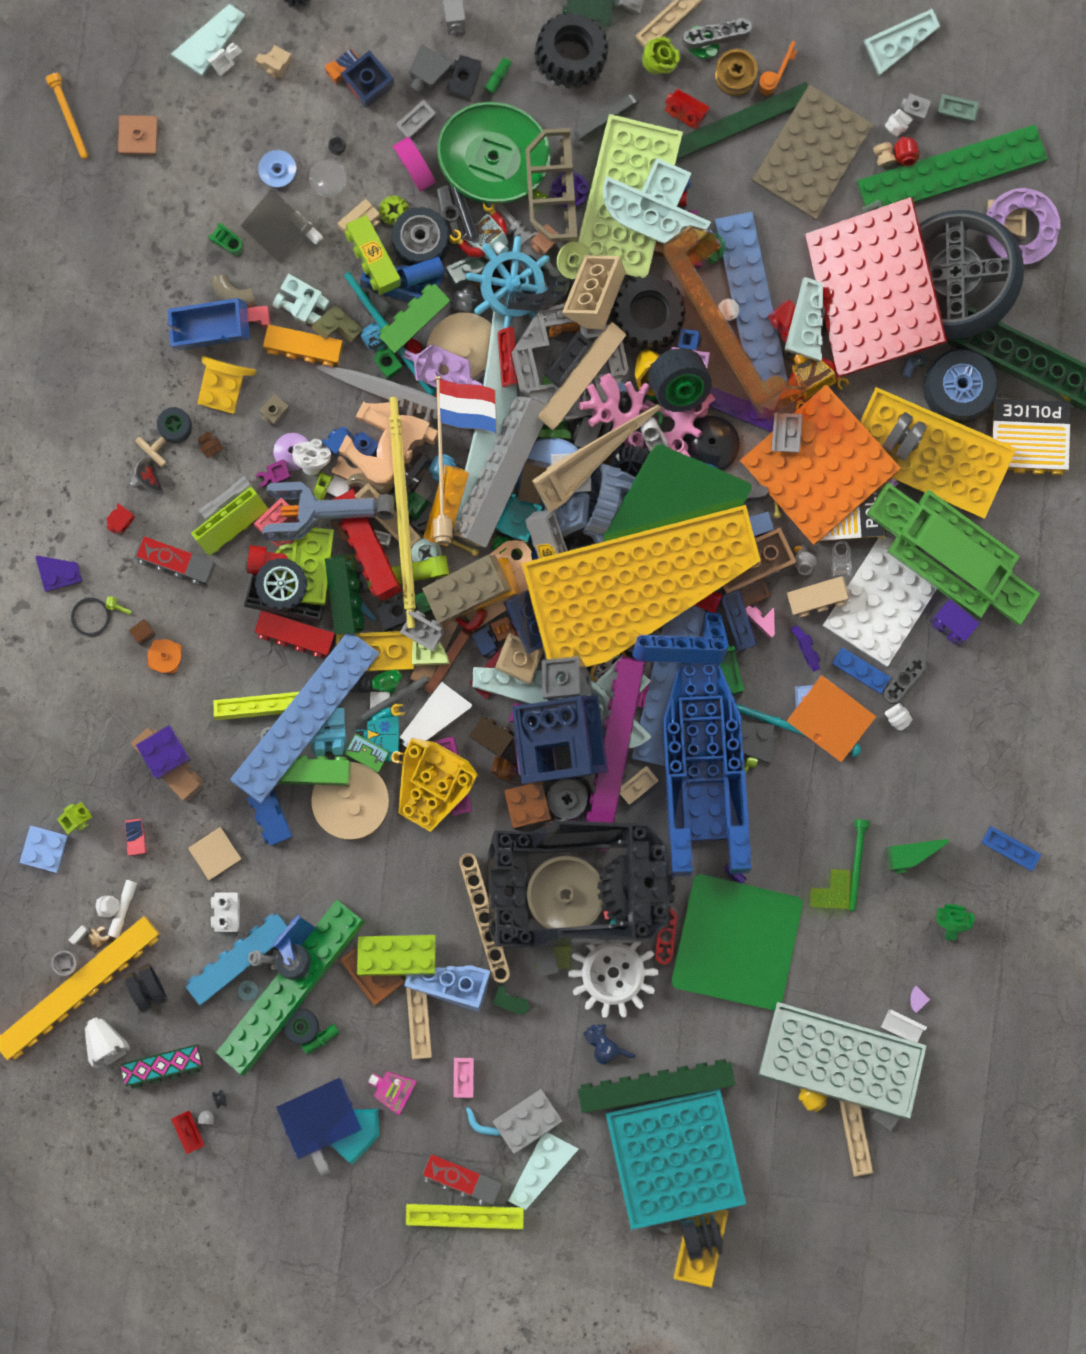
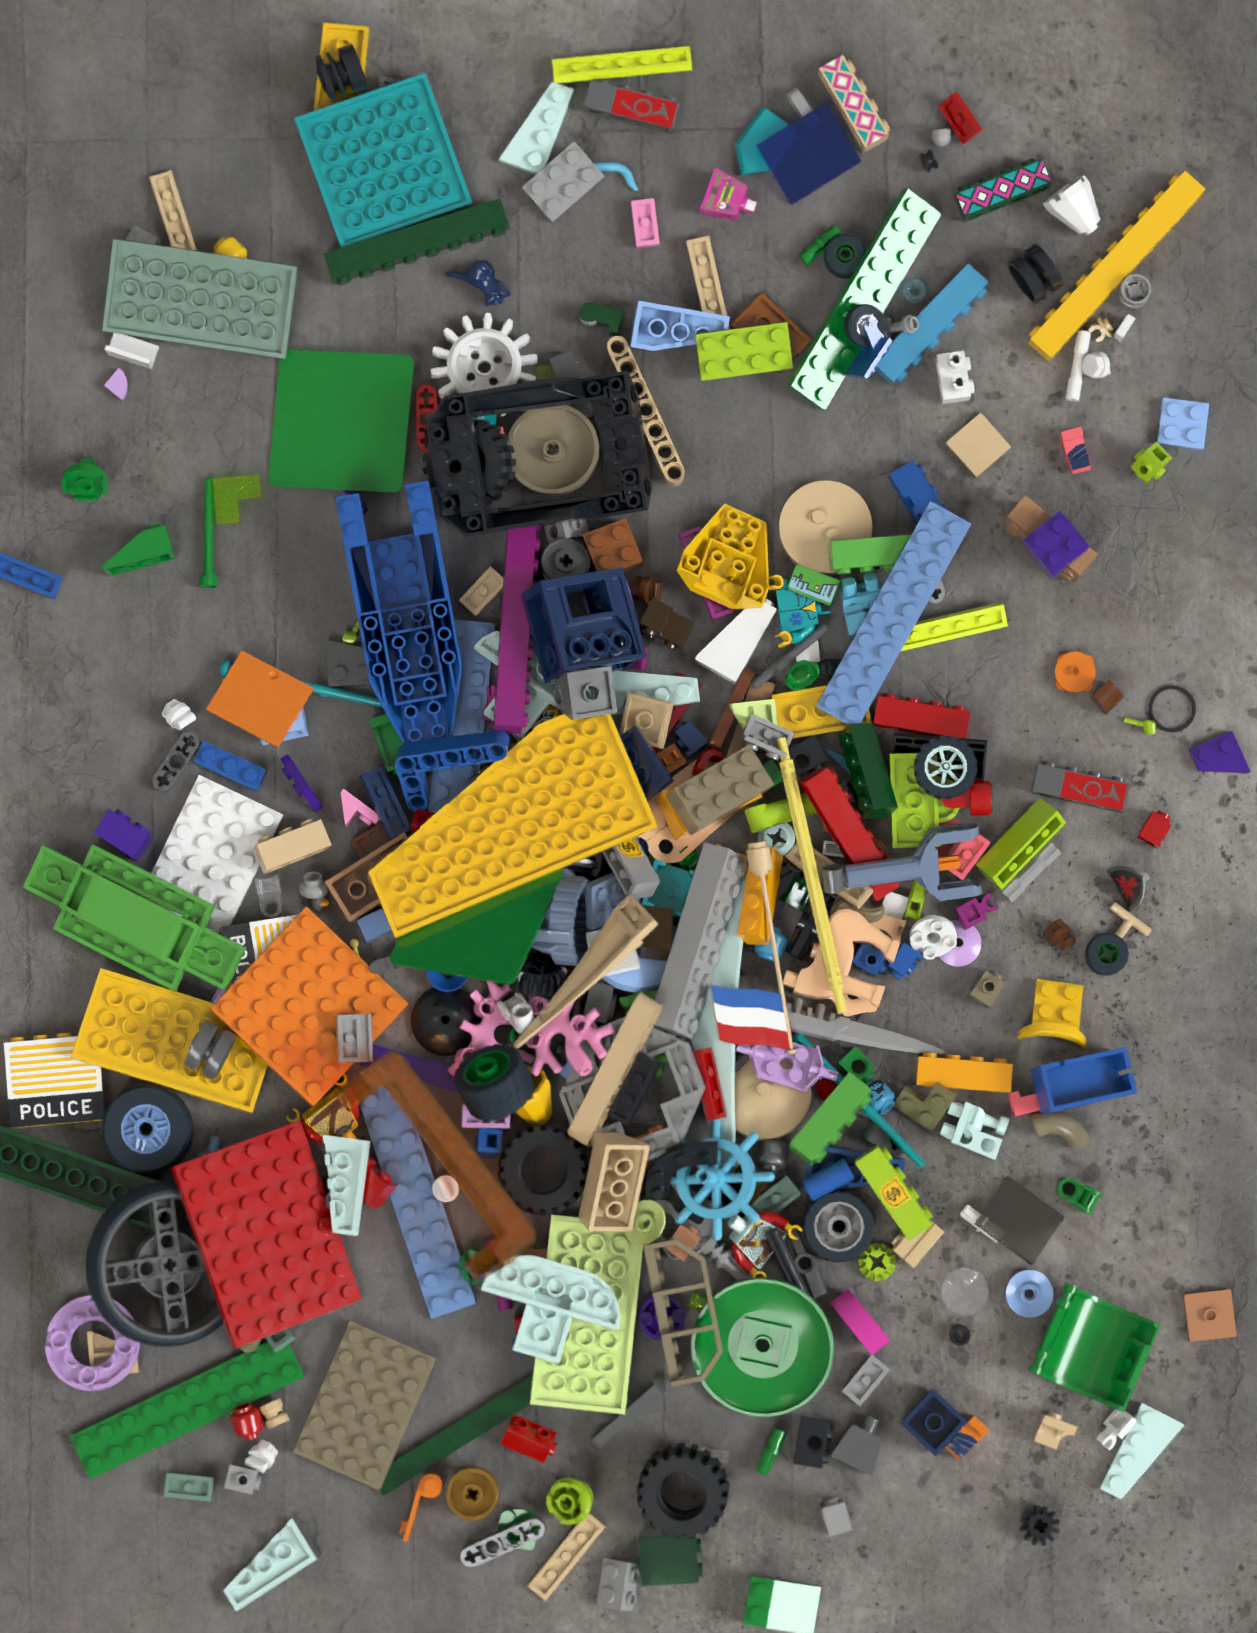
camera: 175 degrees right, 0 degrees up
(230, 118) = (1094, 1347): none -> green hinge
(275, 1156) = (853, 103): none -> brick

